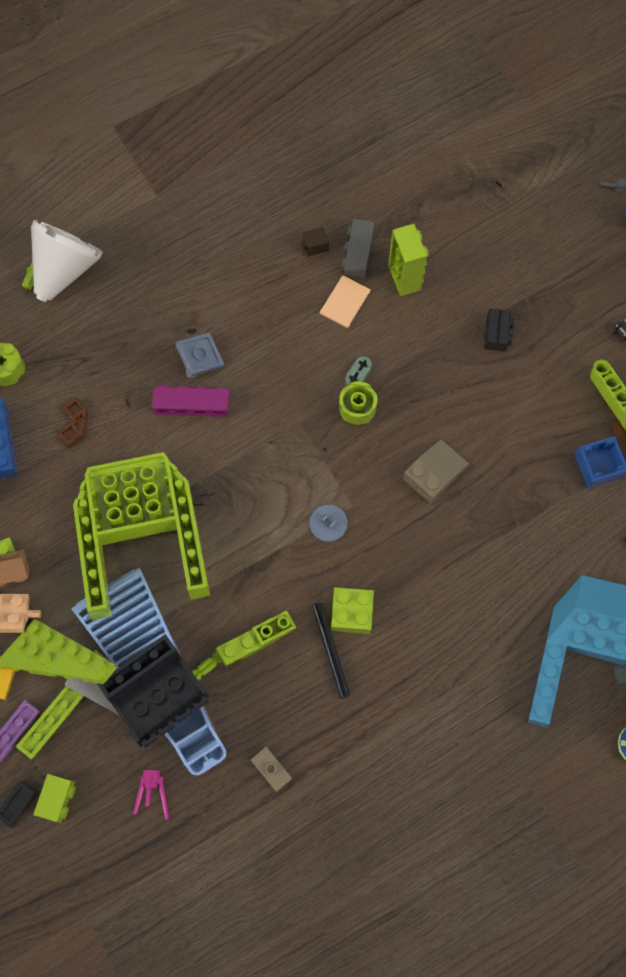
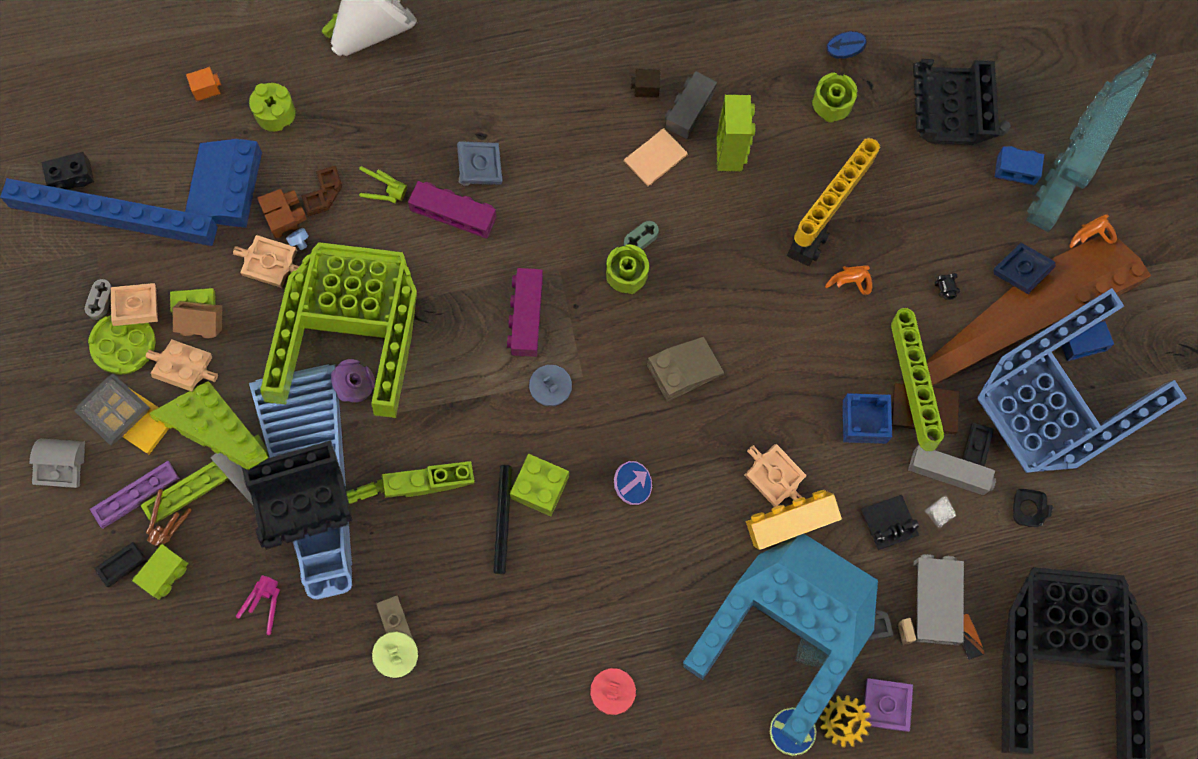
camera: 15 degrees right, 0 degrees up
(42, 453) = (277, 211): none -> dark orange hips
(42, 766) = (161, 534): none -> dark orange plant
(48, 498) = (267, 261): none -> light nougat plate
(67, 469) = (297, 238): none -> light blue tile
(136, 400) = (395, 188): none -> lime plant
(154, 583) = (344, 388): none -> medium lavender plate
(282, 798) = (395, 654): none -> yellowish green piece
(286, 468) = (526, 313): none -> magenta brick
(429, 582) = (633, 483): none -> blue piece
(468, 157) = (846, 45): none -> blue piece
(475, 203) = (834, 97): none -> lime brick
(476, 763) = (613, 691): none -> coral piece
(508, 282) = (836, 192): none -> yellow beam
(544, 535) = (775, 474): none -> light nougat plate
(545, 346) = (853, 274): none -> orange piece
(573, 567) = (793, 520): none -> yellow brick
(577, 176) = (956, 103): none -> black slope

